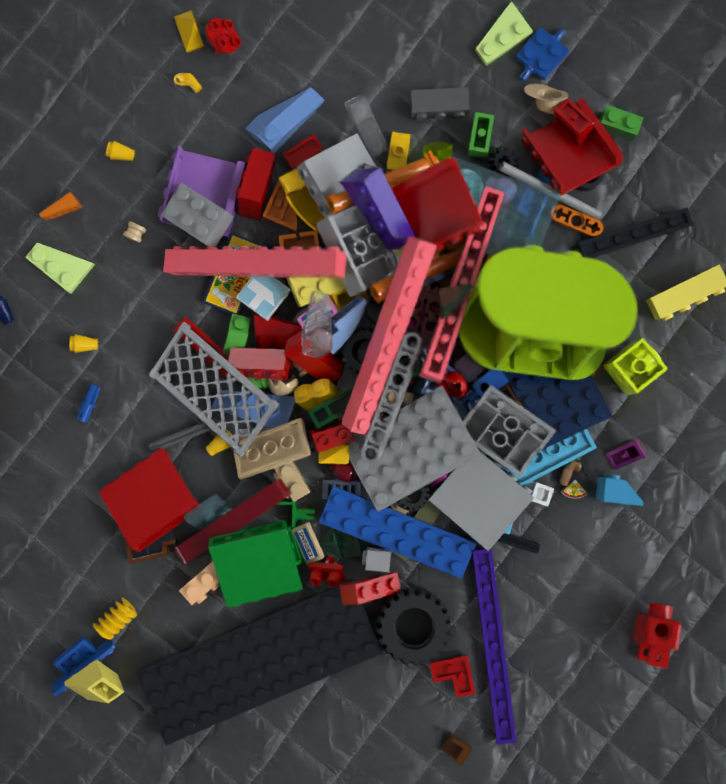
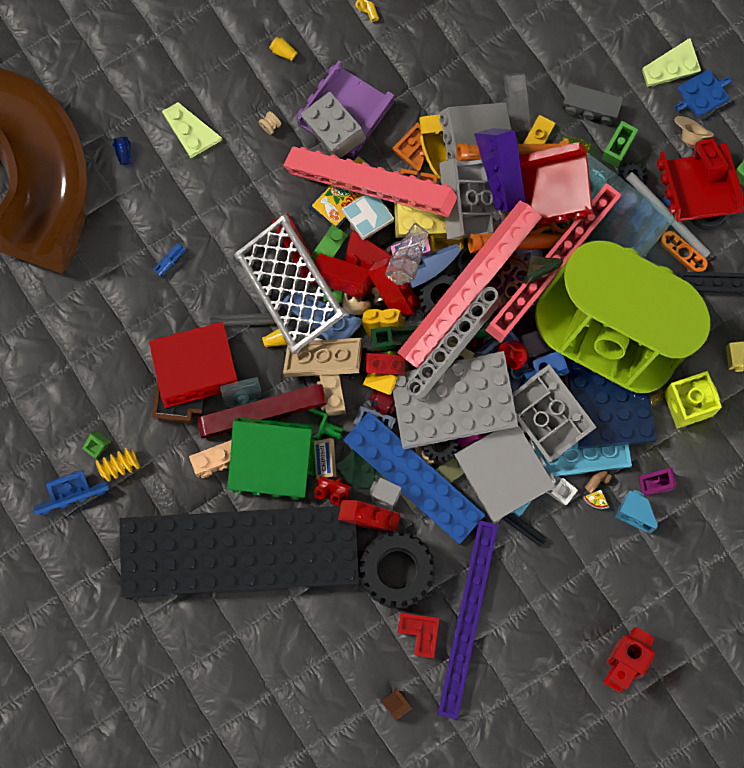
camera: 20 degrees right, 10 degrees down
(64, 205) = (212, 78): orange slope -> none
(82, 343) = (184, 205): yellow cone -> none
(87, 605) = (96, 444): none -> bright green slope
(96, 683) = (77, 515): light yellow slope -> none
(255, 183) = (395, 117): red wedge -> none
(281, 121) = (440, 72): medium blue wedge -> none
(303, 151) = (449, 101): red plate -> none

